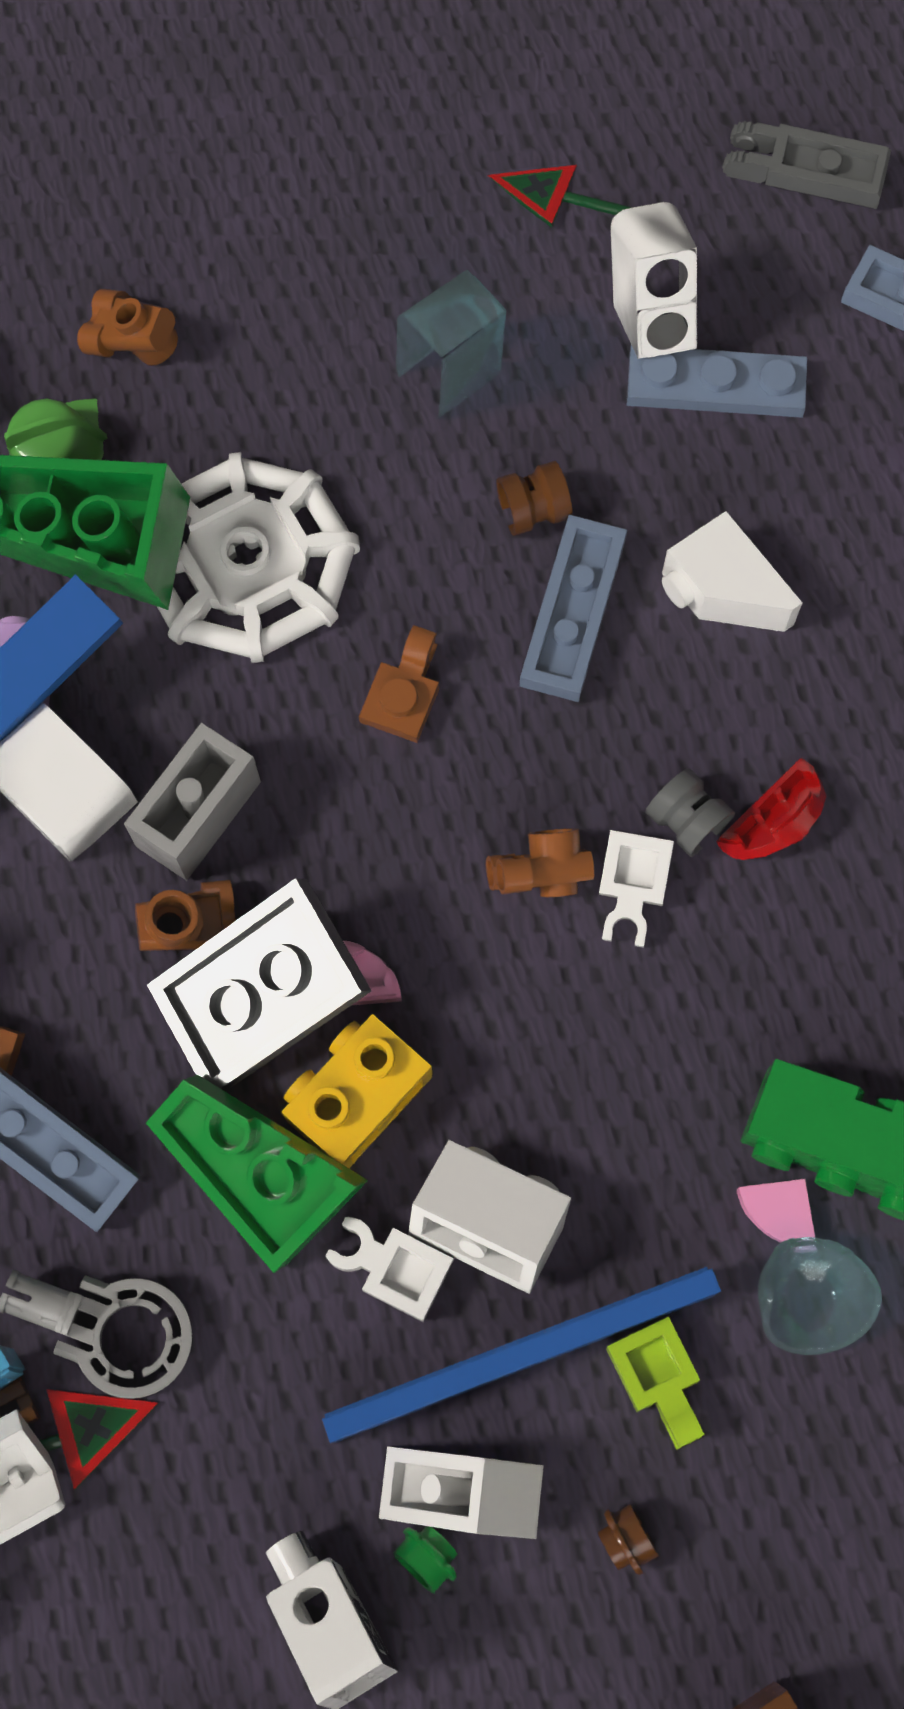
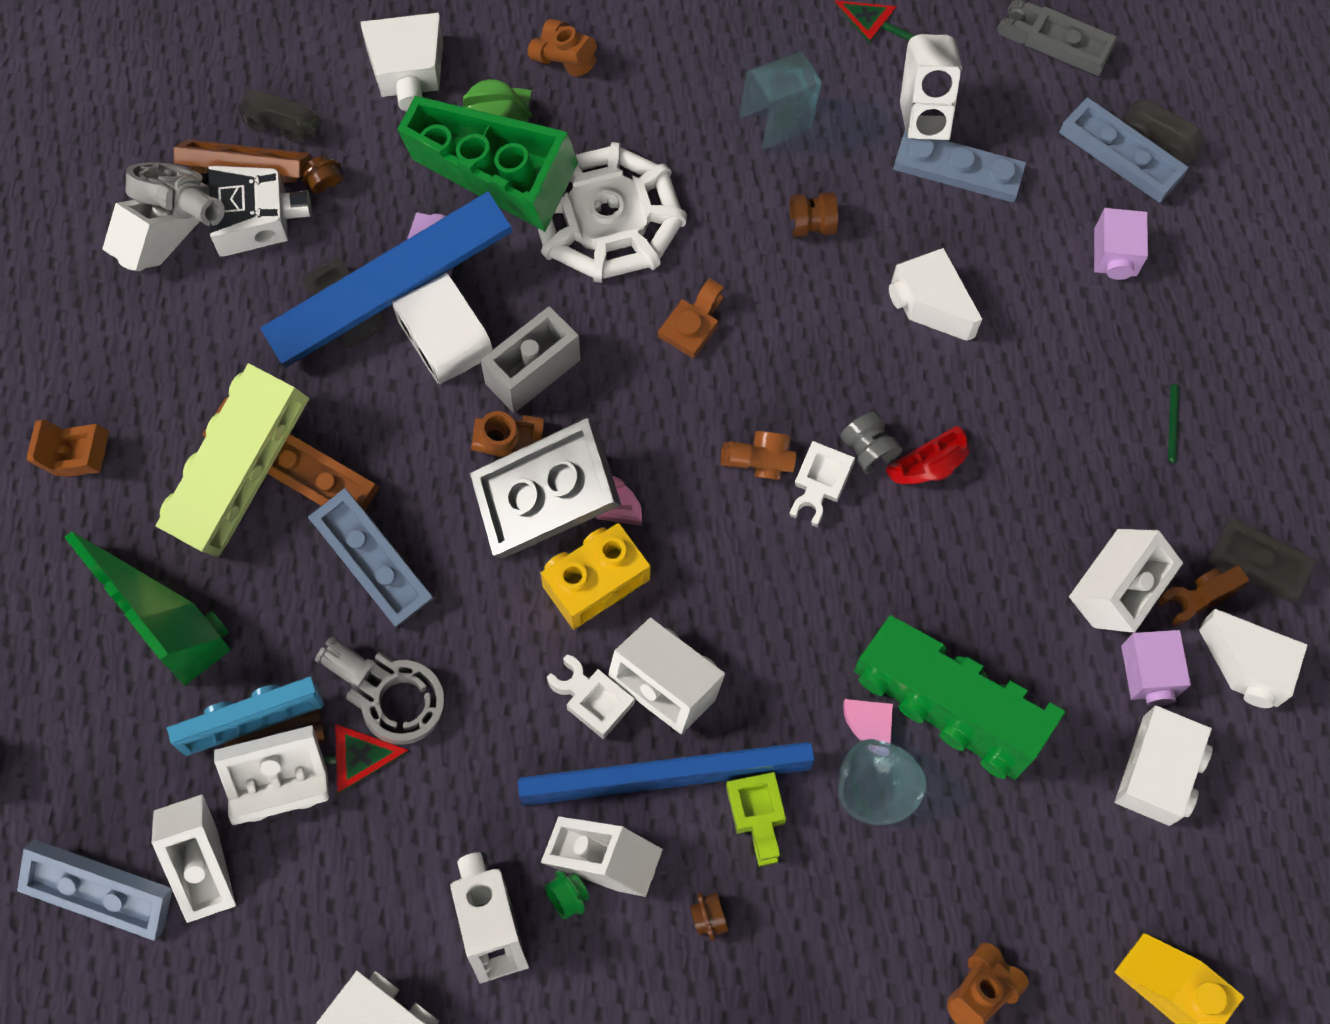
camera: 10 degrees right, 5 degrees down
(253, 1169) = (512, 609): green wing -> none
(573, 608) = (823, 292): sand blue plate -> none

